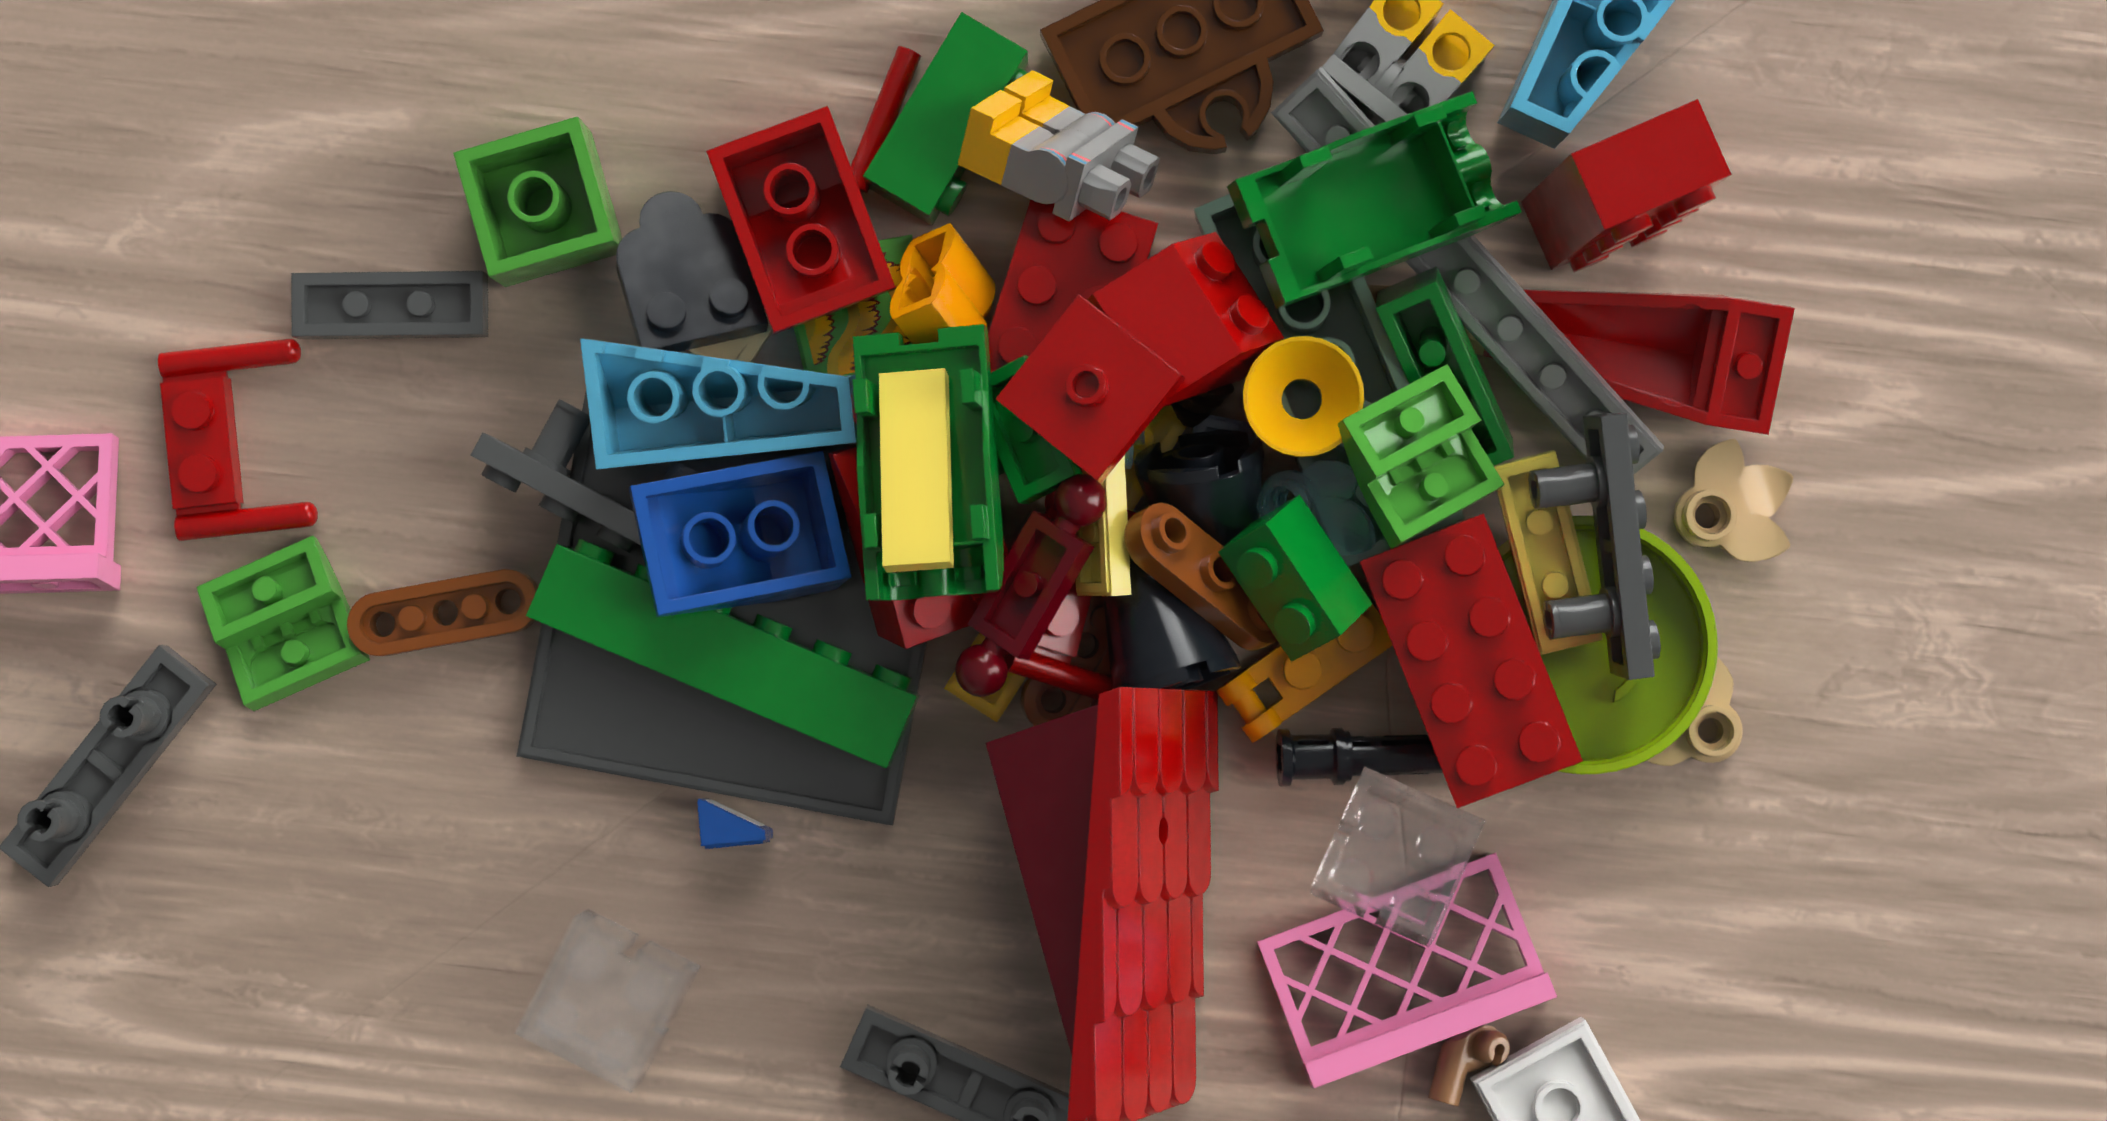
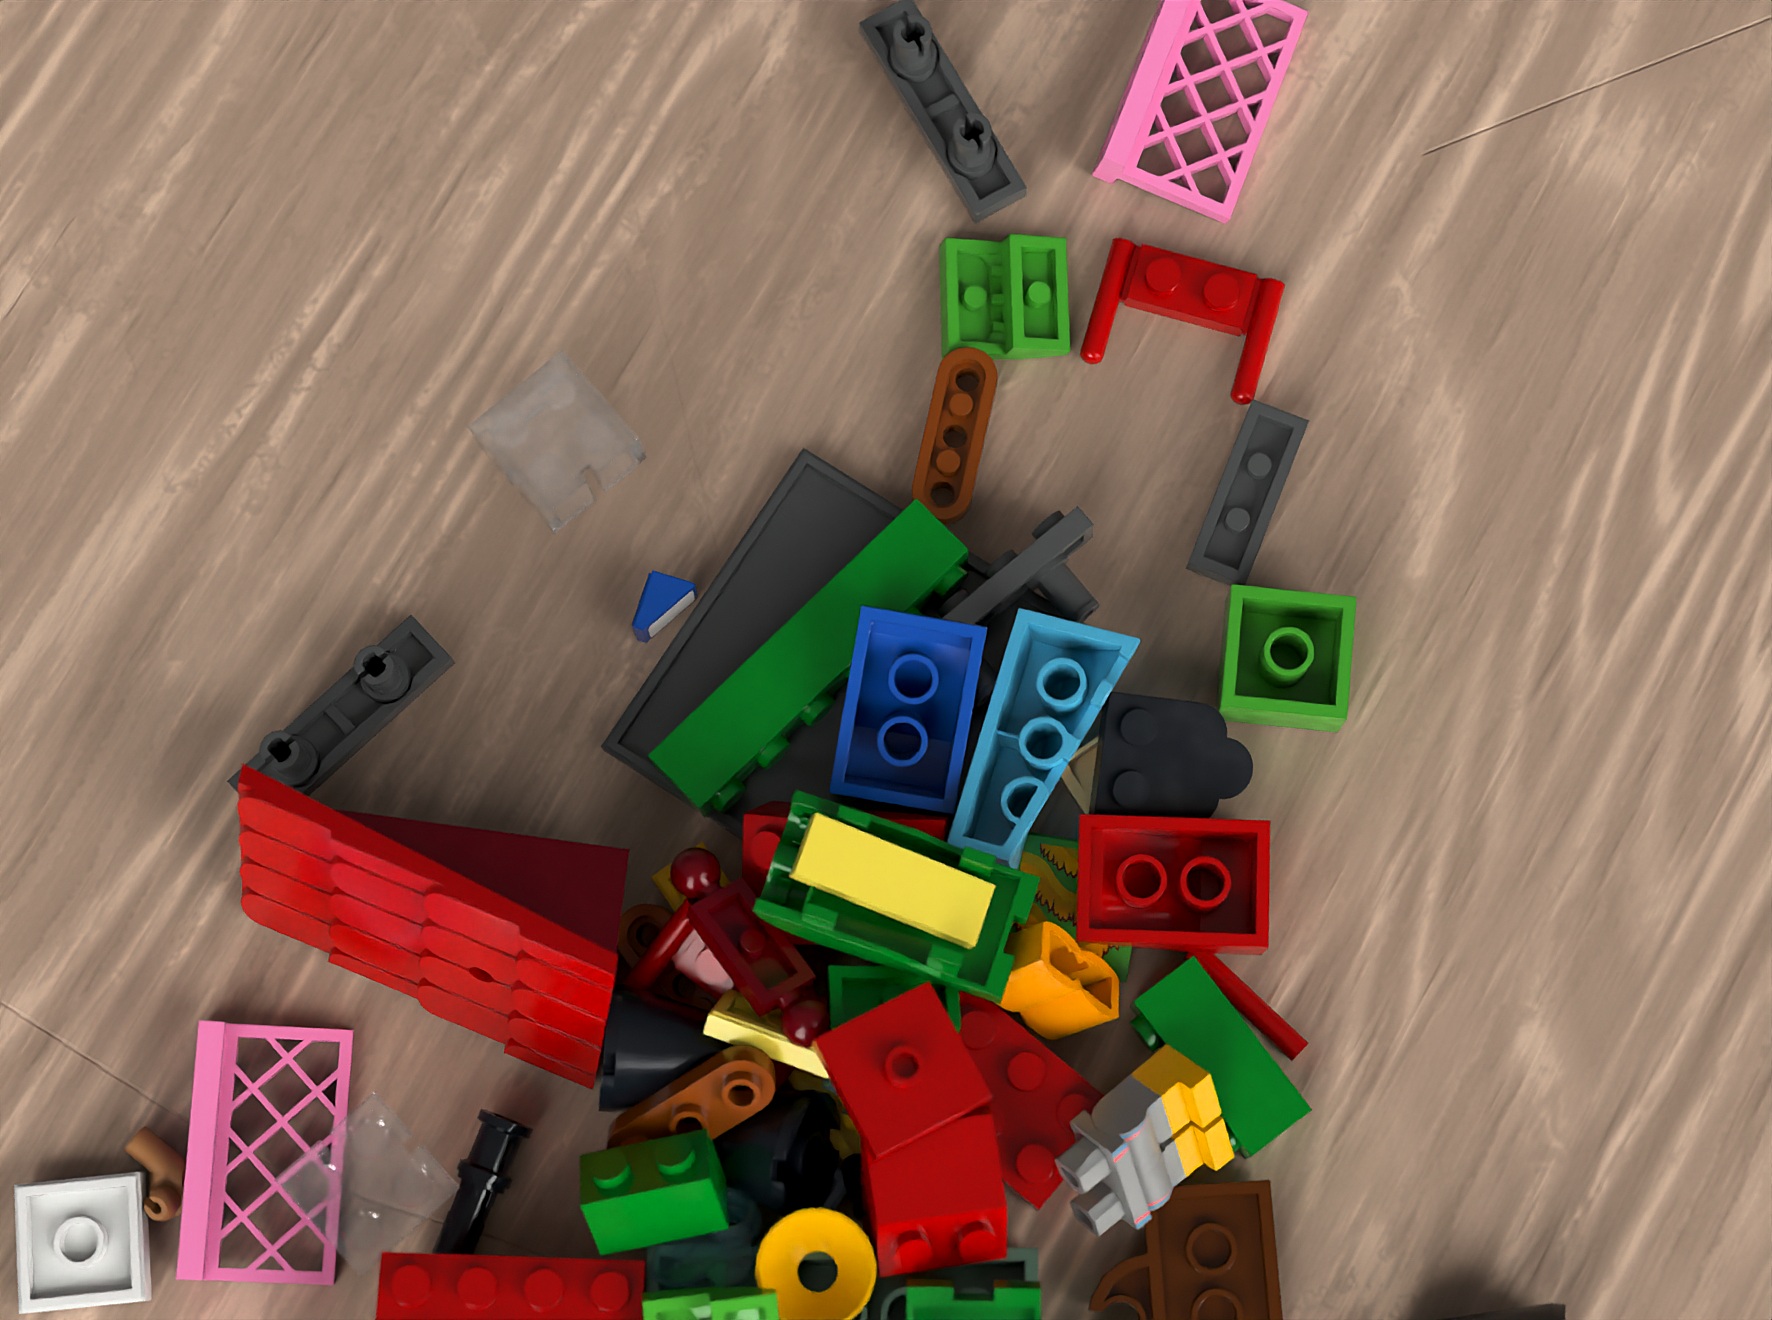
camera: 120 degrees right, 10 degrees down
(1305, 677) = (563, 1168): light orange plate -> none

